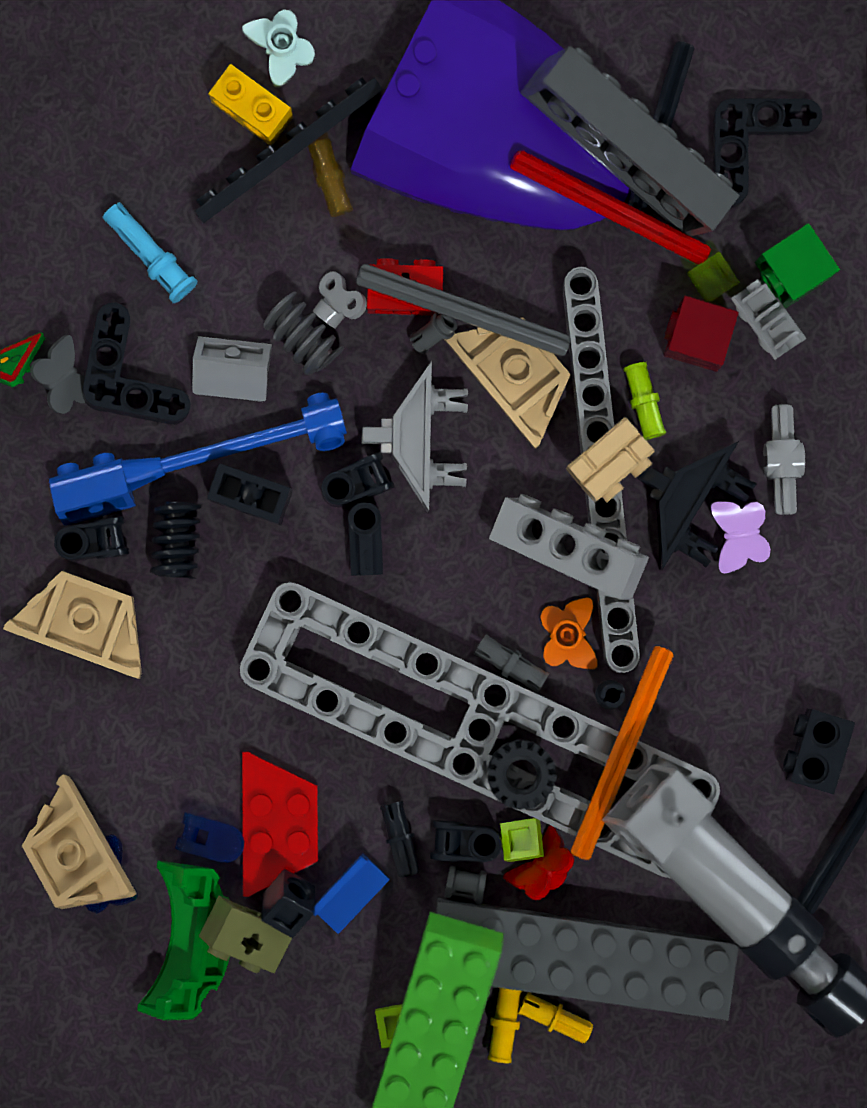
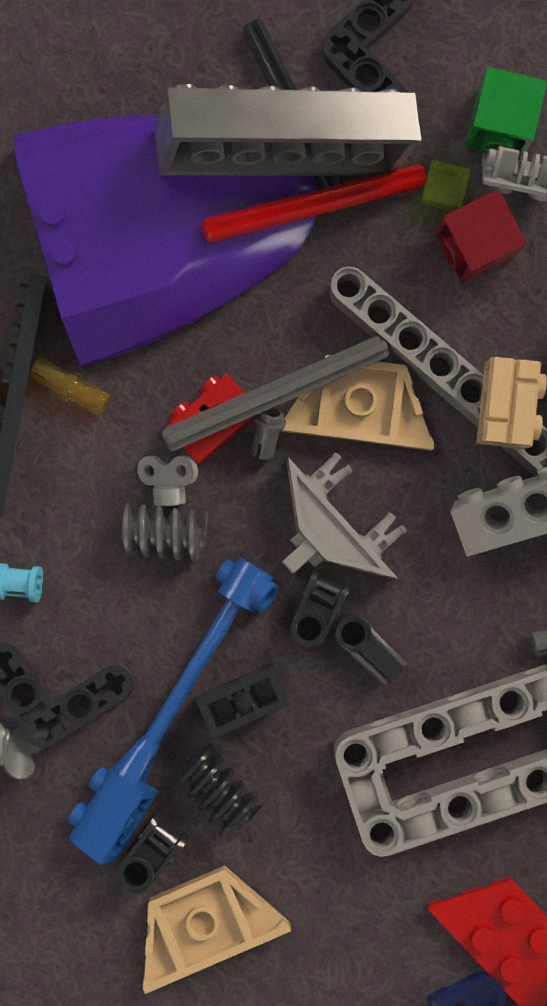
camera: 45 degrees left, 0 degrees up
(231, 368) = (132, 611): light grey panel -> none
(644, 400) = (482, 331): lime pin -> none

